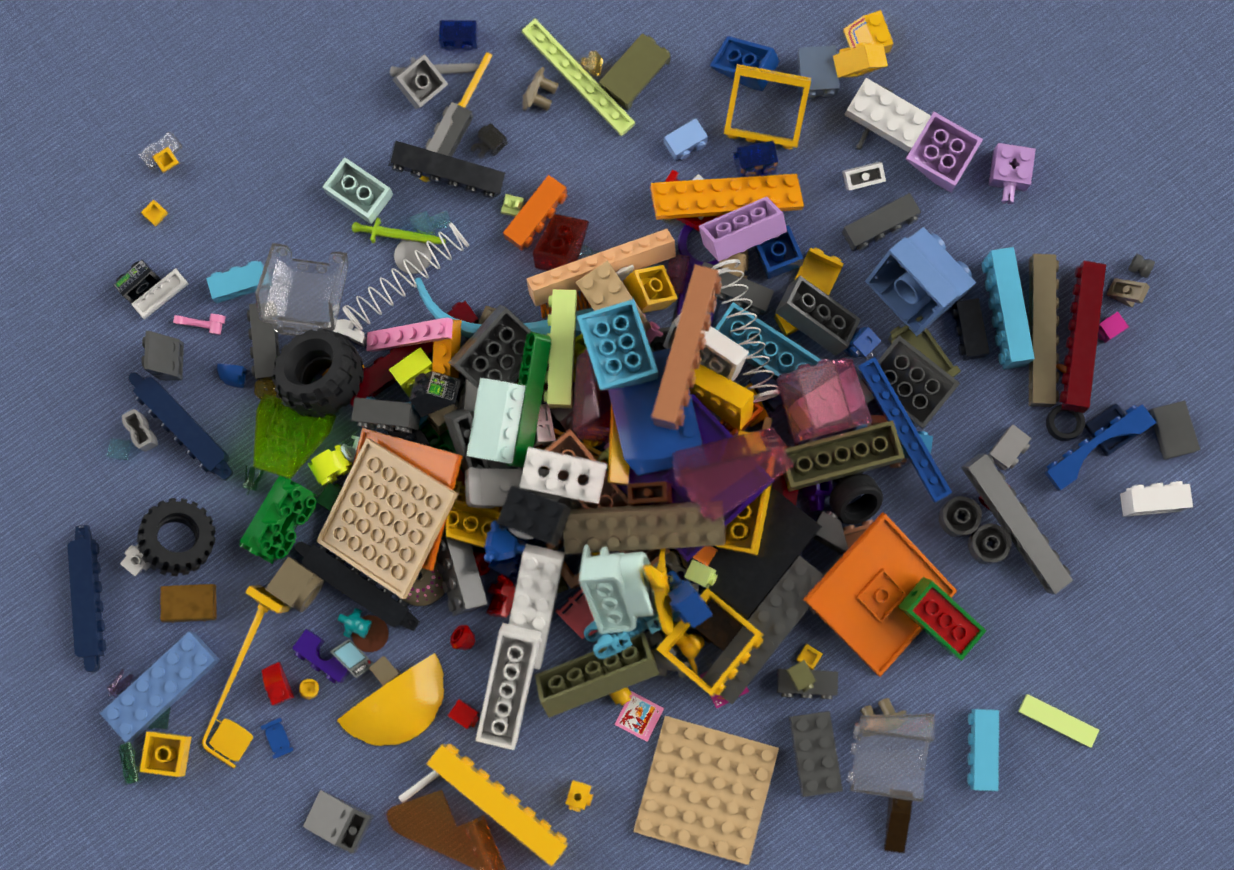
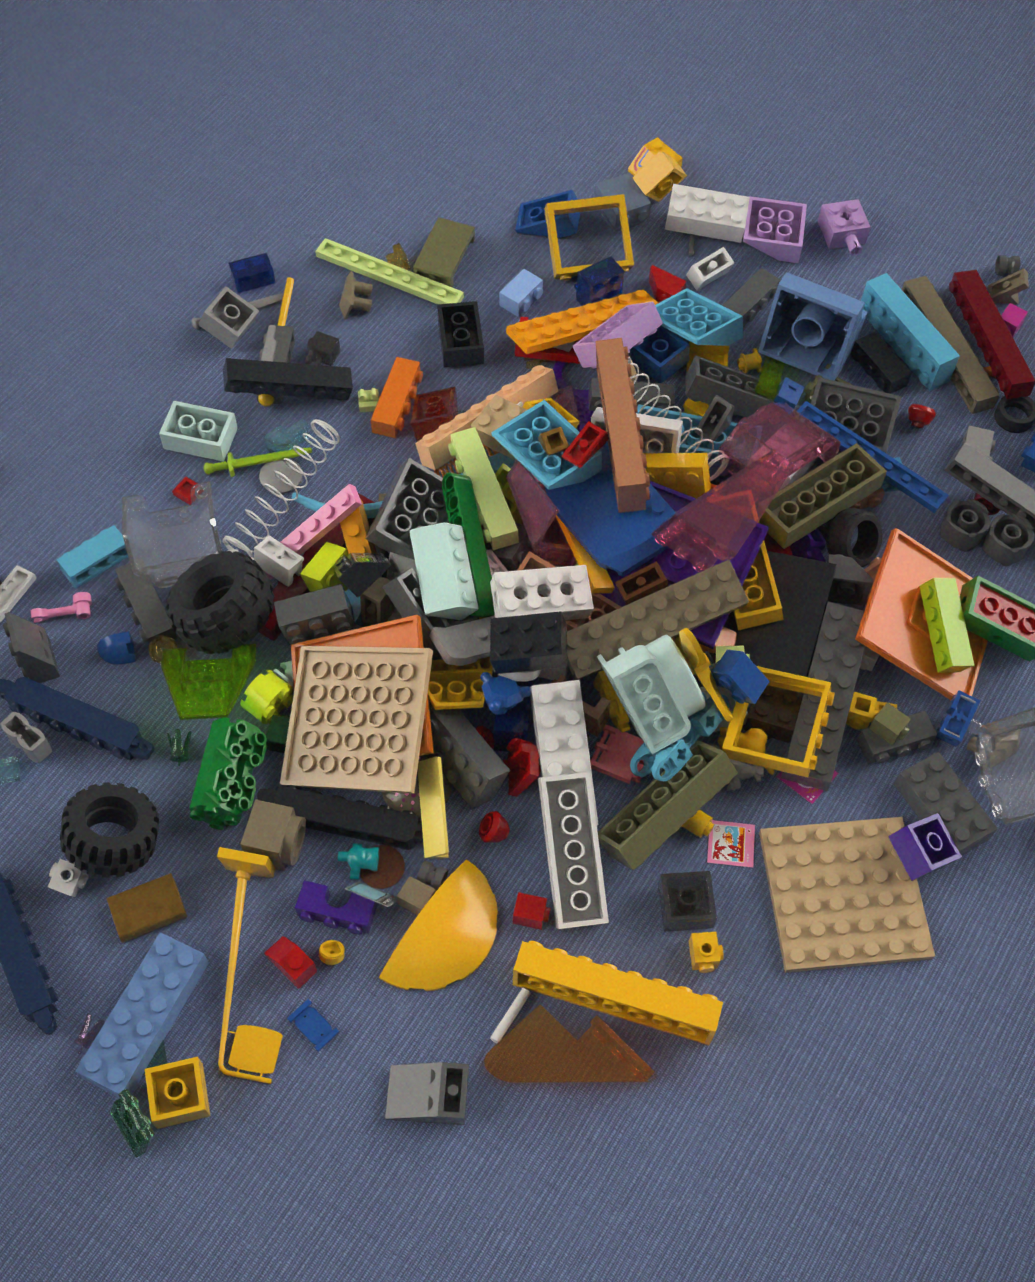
camera: 25 degrees left, 20 degrees down
(333, 242) = (183, 490): none -> red tile
(377, 347) = (278, 560): none -> white hinge
(402, 658) = (431, 875): none -> dark grey wheel
(421, 609) = (433, 808): none -> light yellow panel
(581, 753) = (687, 901): none -> clear smoke brick
(613, 168) = (460, 334): none -> black brick
(622, 347) = (553, 441): none -> pearl gold slope
(645, 361) = (585, 444): none -> red slope
(779, 783) = (924, 846): none -> dark purple brick
(787, 347) = (716, 419): none -> dark grey slope
(787, 652) = (861, 711): none -> yellow brick
(817, 180) = (664, 283): none -> red slope
(819, 234) = (700, 319): none -> medium azure slope
(855, 286) = (750, 361): none -> yellow brick
(859, 315) = (770, 377): none -> clear neon green tile
(862, 690) = (959, 719): none -> blue piece
(887, 610) = (946, 625): none -> lime brick
(978, 395) = (920, 415): none -> red cone

